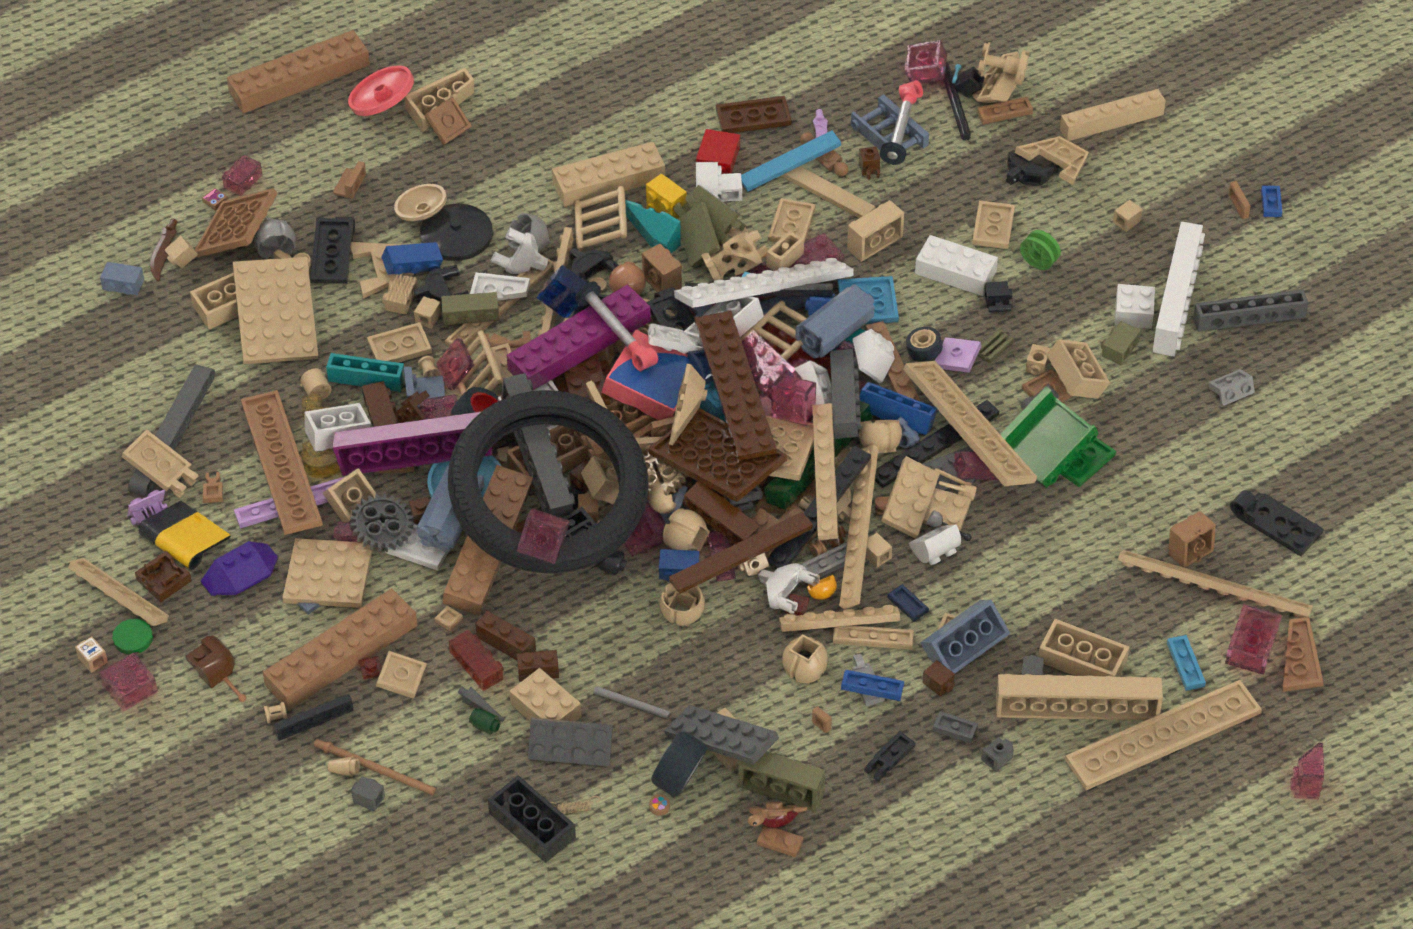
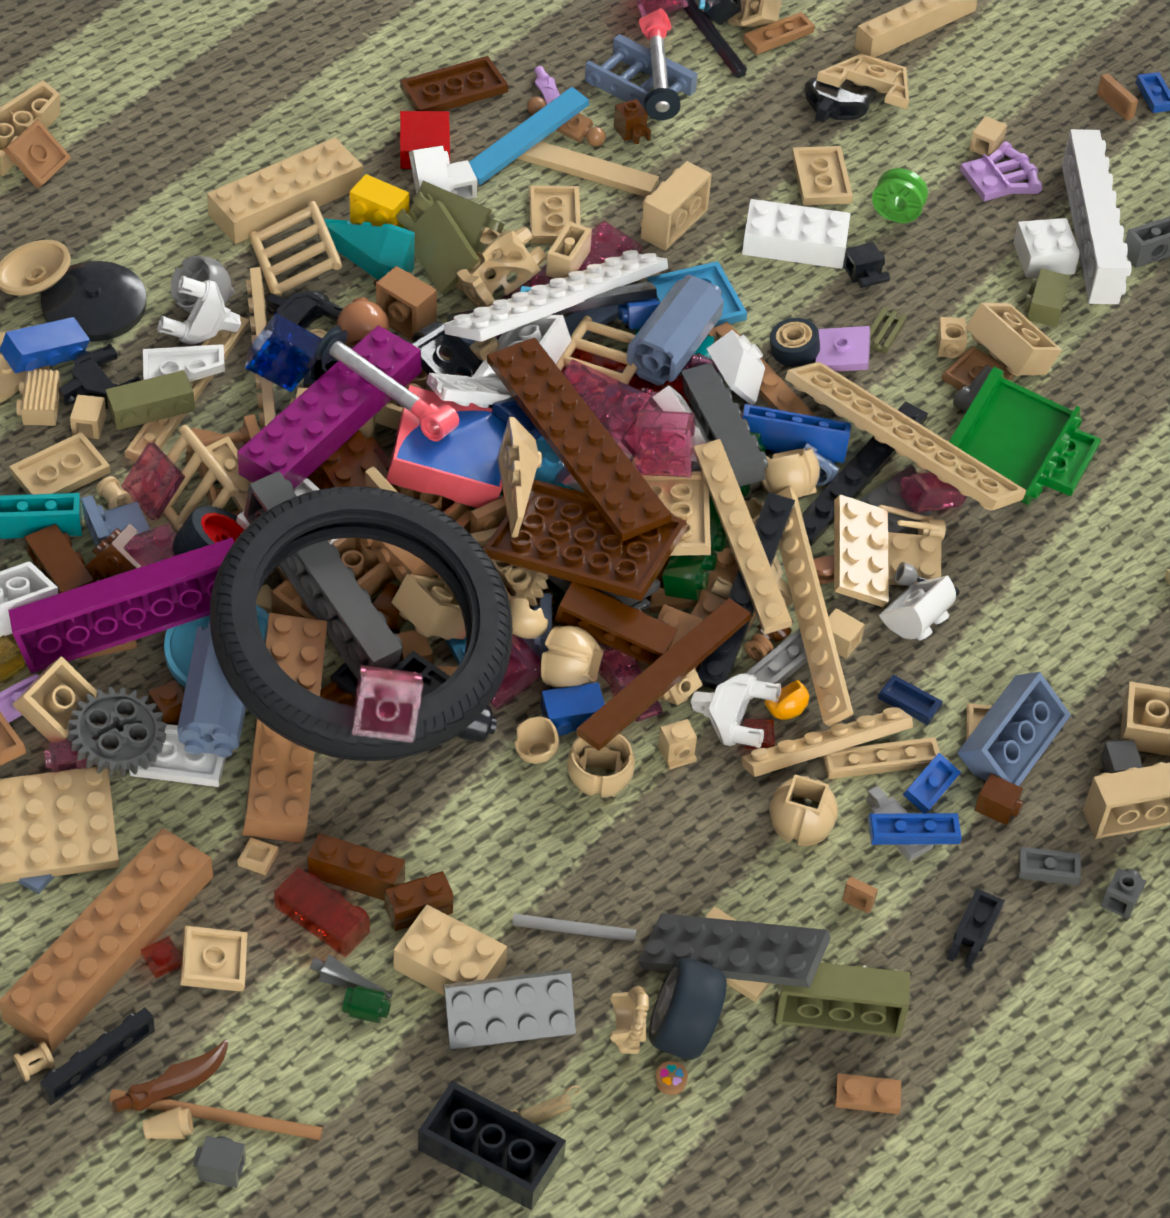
camera: 20 degrees left, 0 degrees up
(355, 741) = (175, 1080): none -> reddish brown sword
(642, 766) = (630, 1019): none -> tan piece
(647, 580) = (536, 740): none -> tan hair
(700, 311) = (485, 347): none -> tan tile
(739, 601) = (677, 744): none -> tan brick
(774, 814) = (851, 1055): medium nougat animal -> none
(898, 659) = (931, 783): none -> blue plate
(1117, 249) = (990, 182): none -> lavender plate

